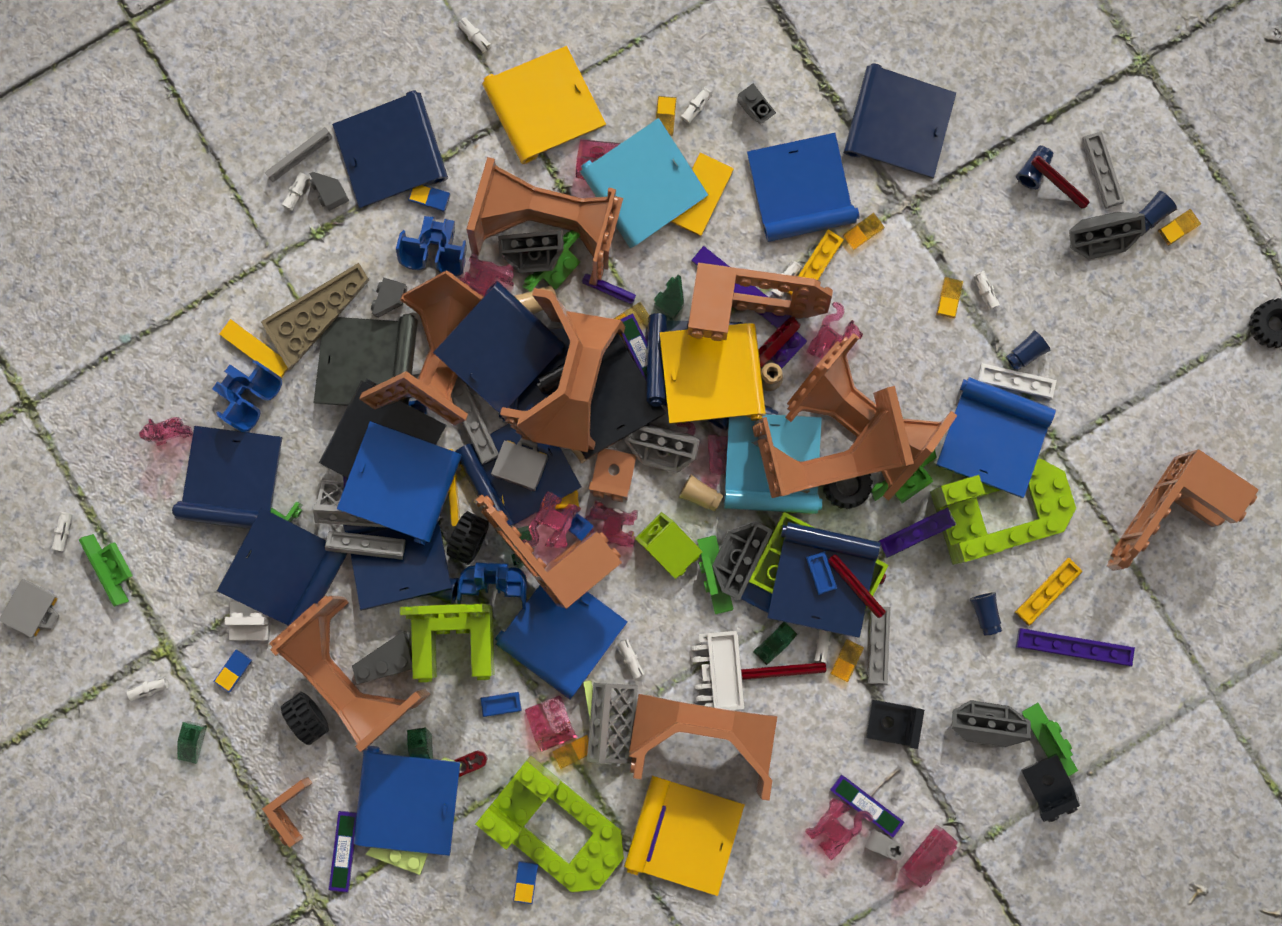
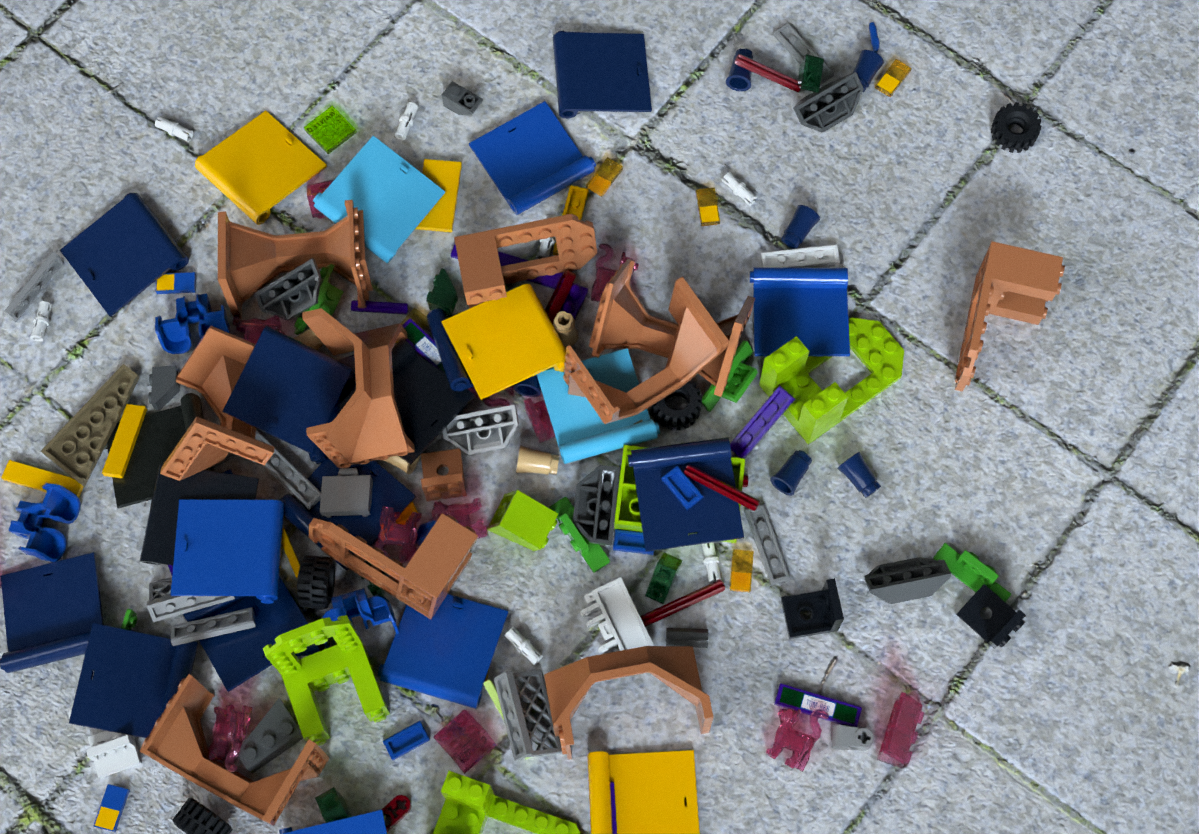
camera: 20 degrees left, 15 degrees down
(330, 190) = (75, 307): dark grey slope -> none
(338, 339) = (124, 441): none -> yellow tile
(350, 642) = (232, 728): none -> clear pink animal
(572, 751) = (496, 762): clear yellow tile -> none
(621, 88) = (330, 130): none -> clear neon green tile
(666, 112) = (380, 131): tile -> none
(775, 704) = (687, 637): none -> dark grey axle
(926, 588) = (791, 473): none -> dark blue plant
(1048, 591) = (910, 436): yellow tile -> none
(1075, 647) = (958, 479): dark purple tile -> none
(1100, 200) = (810, 73): none -> clear green slope
(1177, 183) = (874, 37): none -> blue piece

